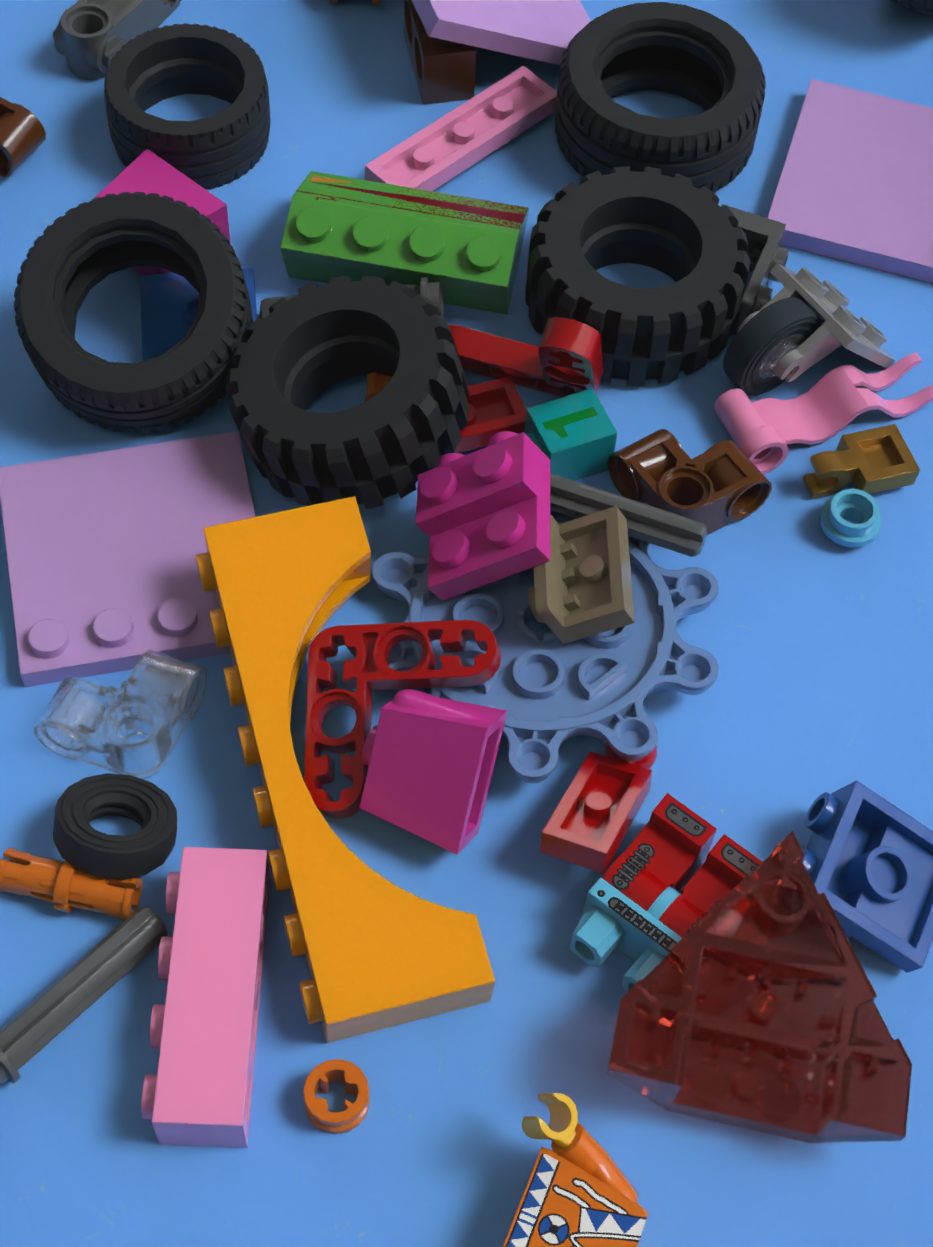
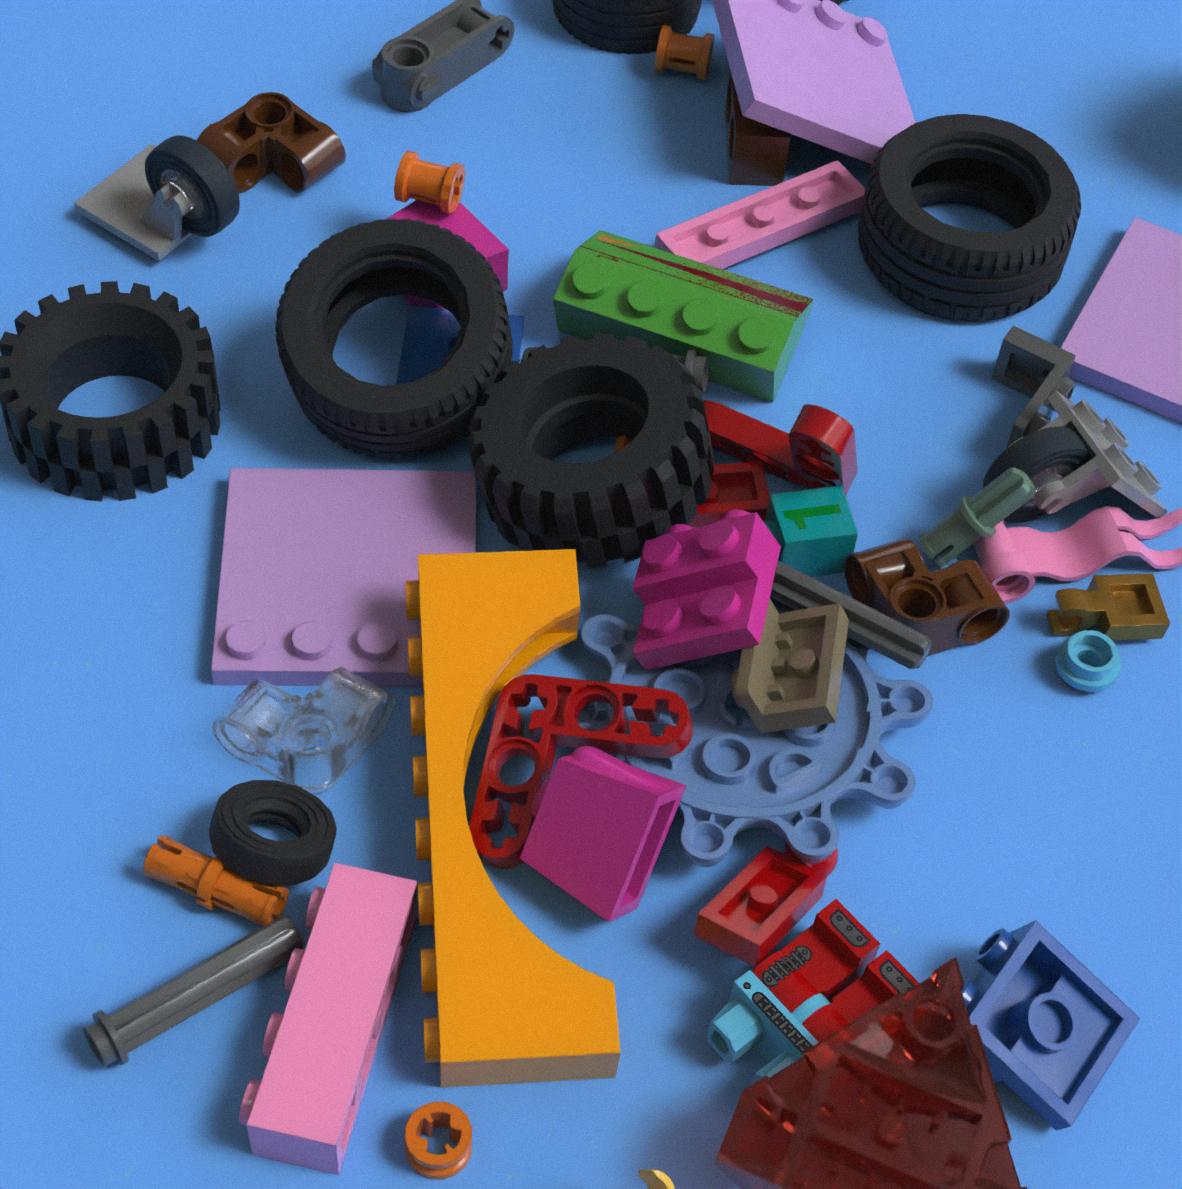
camera: 10 degrees right, 5 degrees down
(136, 149) = (429, 182): none -> orange bush
(183, 62) = (502, 108): black tyre -> none
(647, 223) = (927, 331): black tyre -> none
(725, 396) = (977, 516): none -> sand green axle

